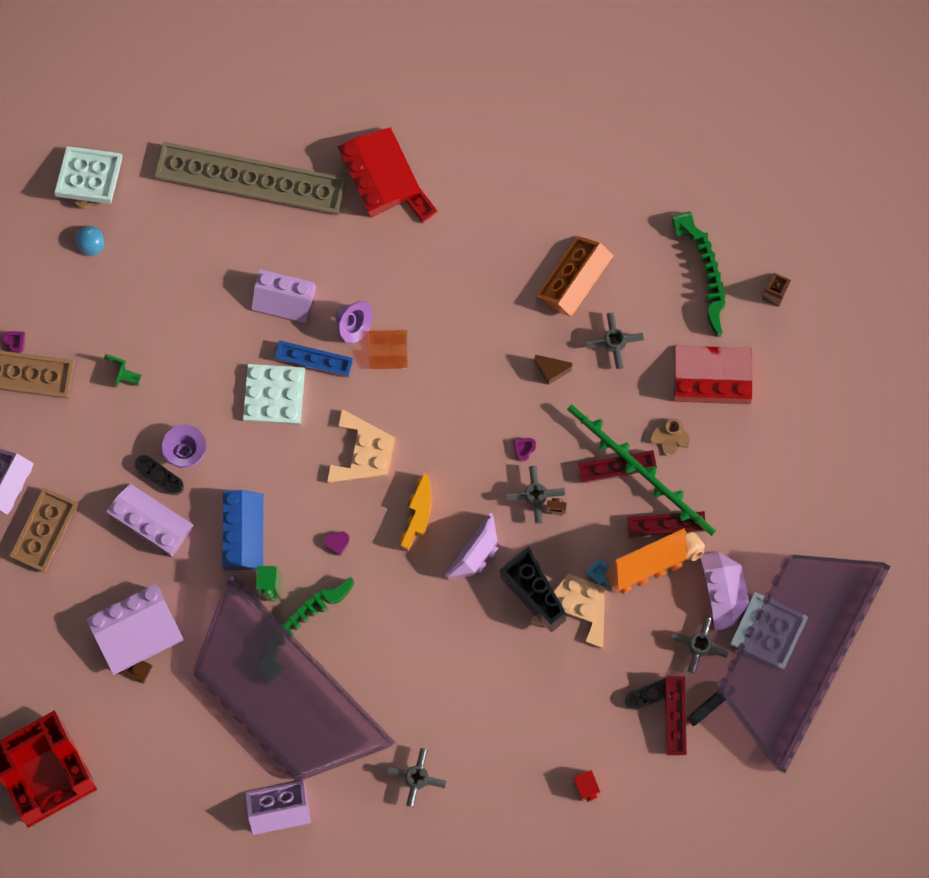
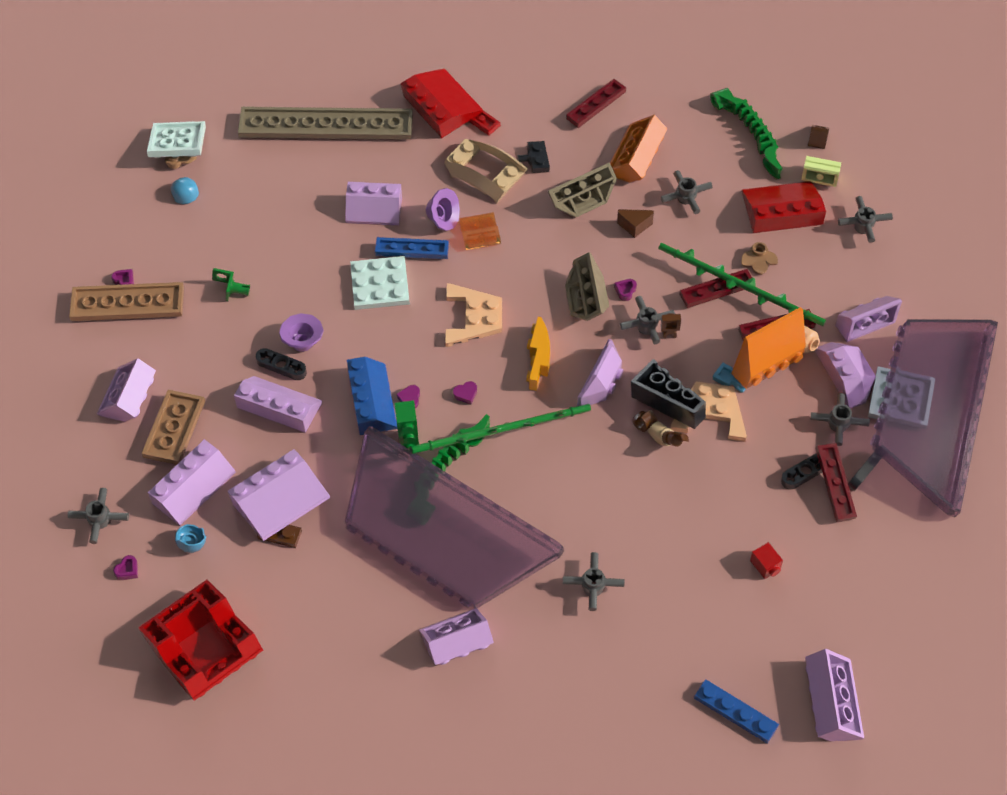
camera: 15 degrees left, 20 degrees down
(45, 658) = (190, 538): none -> dark azure hair
(54, 597) = (191, 482): none -> lavender slope
(281, 536) = (409, 394): none -> magenta tile
(369, 595) = (507, 426): none -> green plant
(427, 288) = (503, 181): none -> tan wedge
(466, 263) = (536, 157): none -> black plate
(482, 448) = (586, 289): none -> dark tan wedge
(505, 322) = (584, 192): none -> dark tan wedge
(517, 624) = (658, 431): none -> reddish brown piece
(546, 203) = (596, 103): none -> dark red plate
(760, 532) = (868, 317): none -> lavender slope
(764, 340) = (821, 171): none -> yellowish green brick
(787, 416) = (865, 219): none -> dark grey bar

